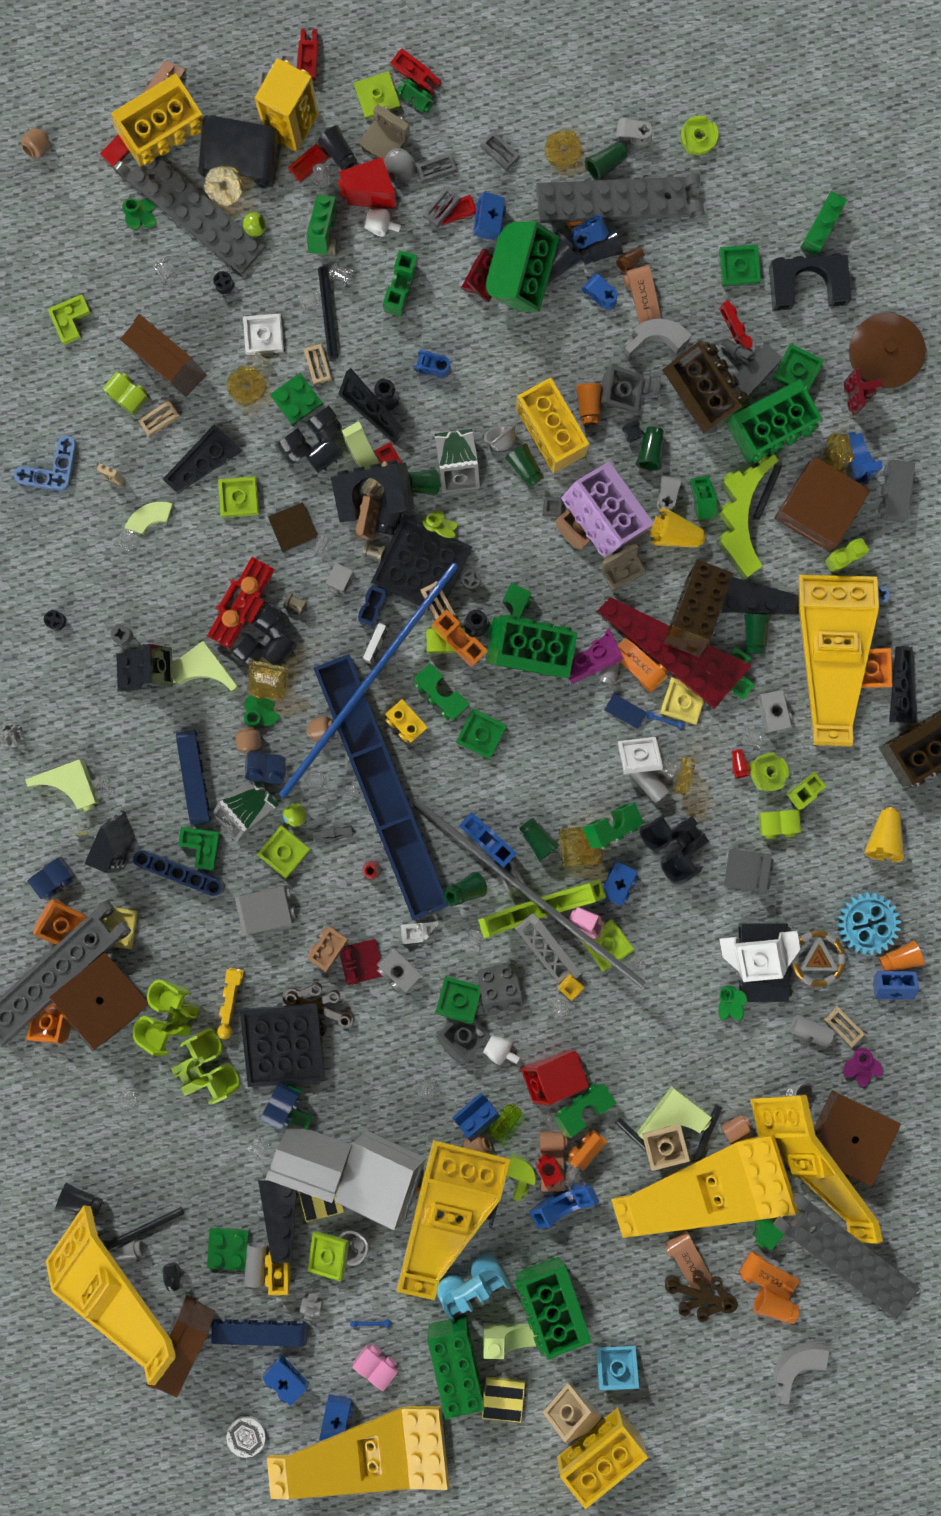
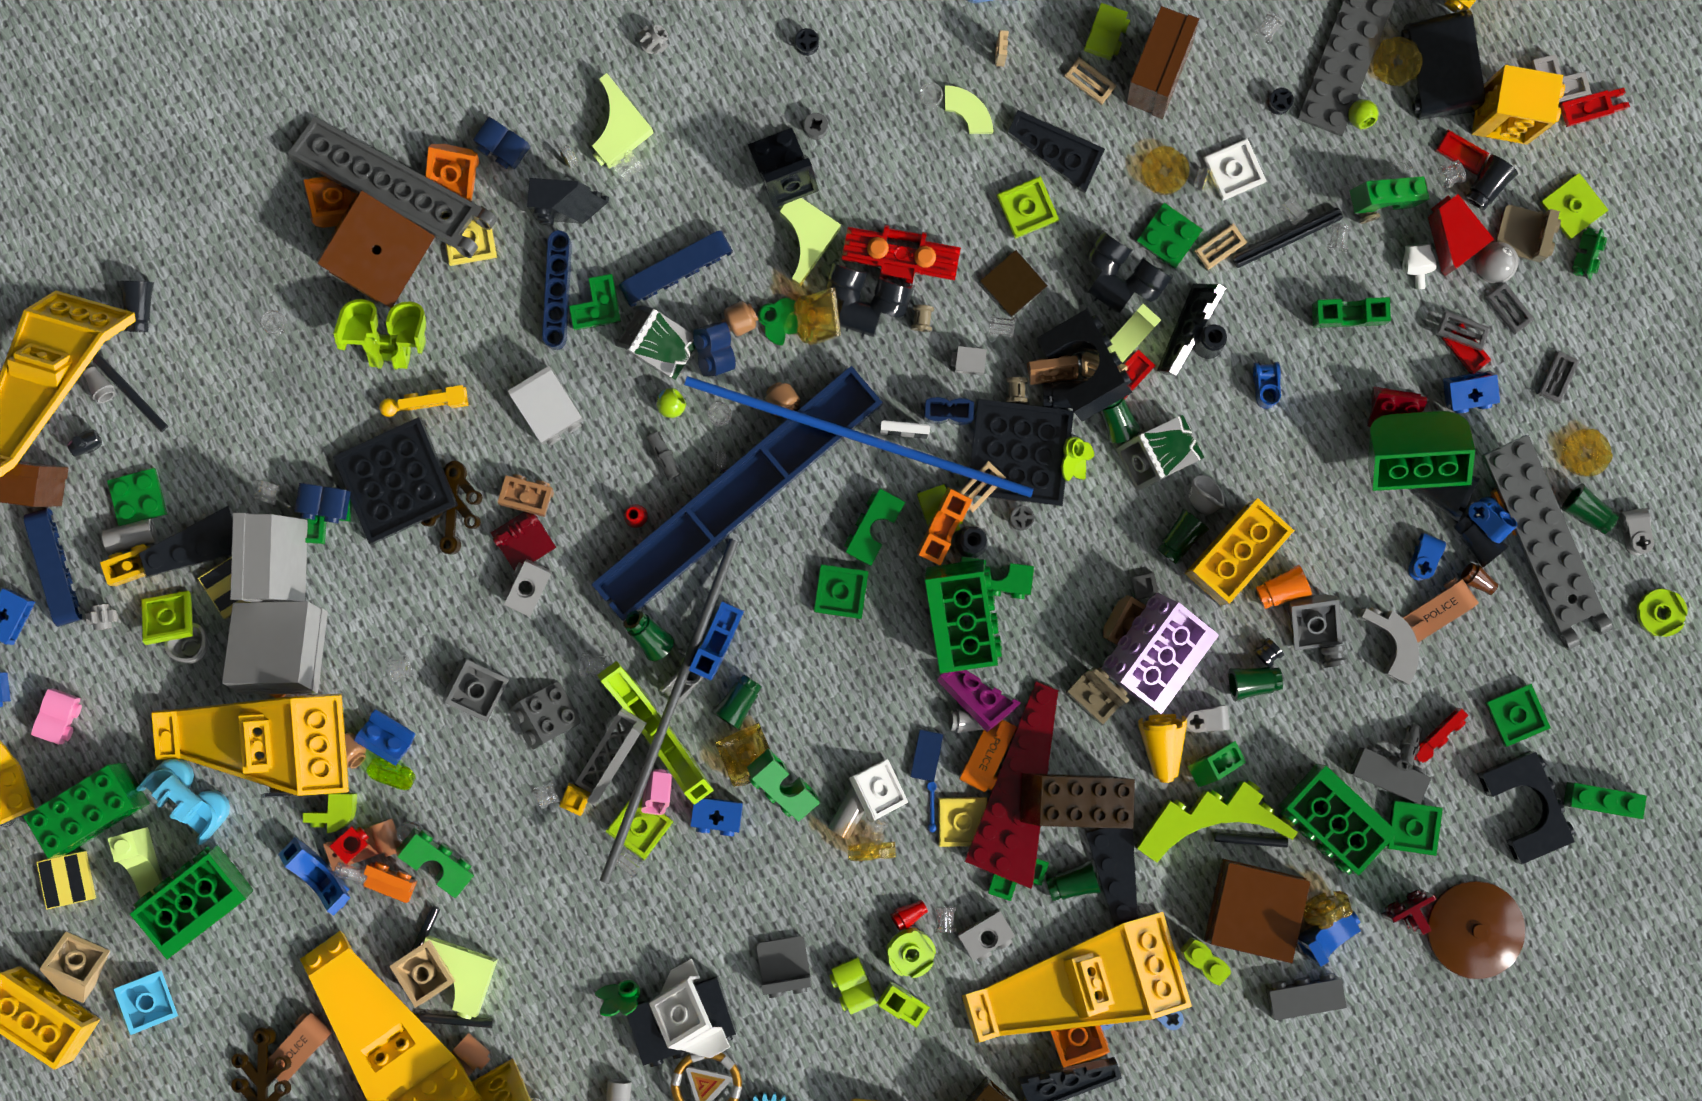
camera: 70 degrees right, 0 degrees up
(220, 1081) = (329, 422): lime piece -> none
(283, 851) = (623, 404): lime plate -> none
(387, 1323) = (110, 712): blue hinge -> none
(406, 722) = (825, 497): yellow brick -> none
(414, 70) = (1620, 241): red hinge -> none
(417, 931) = (580, 594): white slope -> none
(458, 1000) = (515, 670): green plate -> none
(499, 1049) = (472, 738): white piece -> none
(554, 1077) = (461, 815): red slope -> none
(678, 865) = (762, 879): black piece -> none
(694, 388) = (1350, 723): dark brown brick -> none

